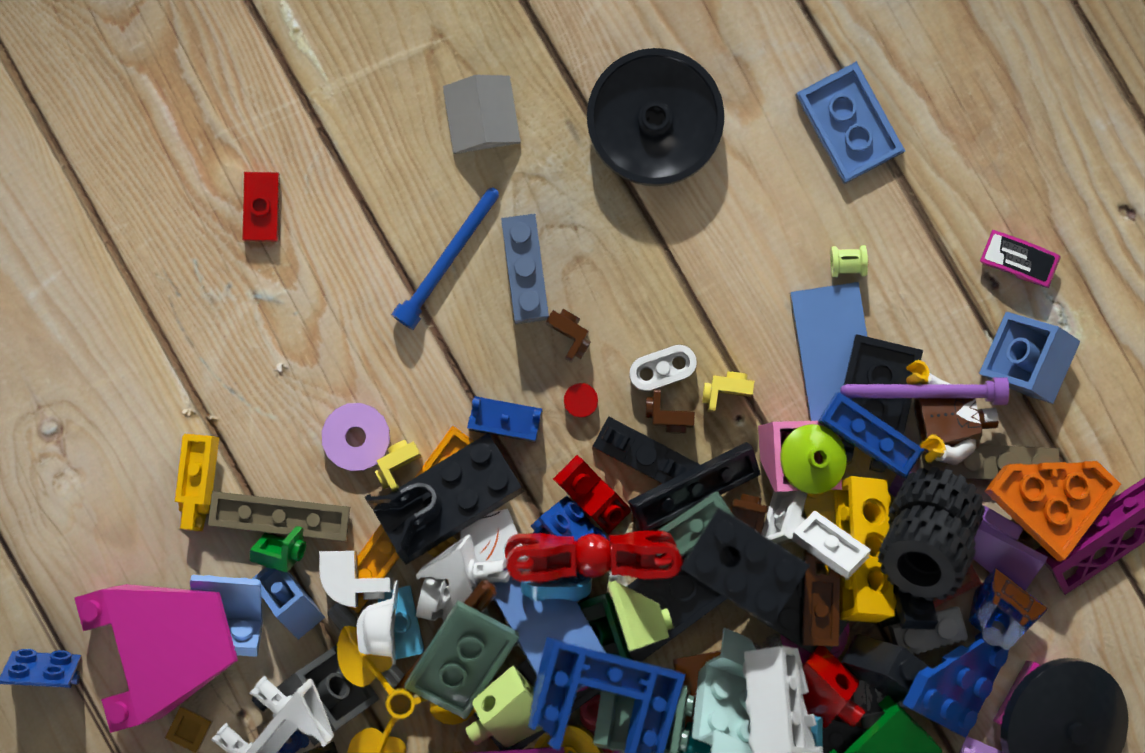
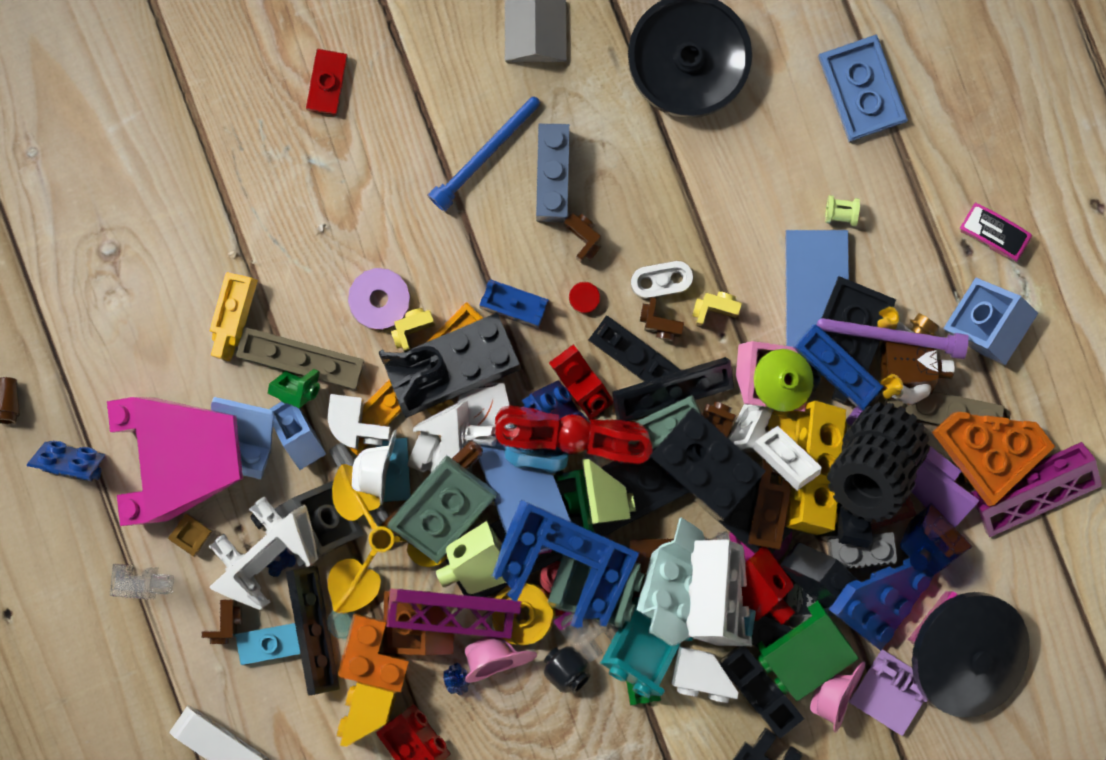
camera: 10 degrees right, 0 degrees up
(957, 374) = (924, 325): none -> pearl gold plate

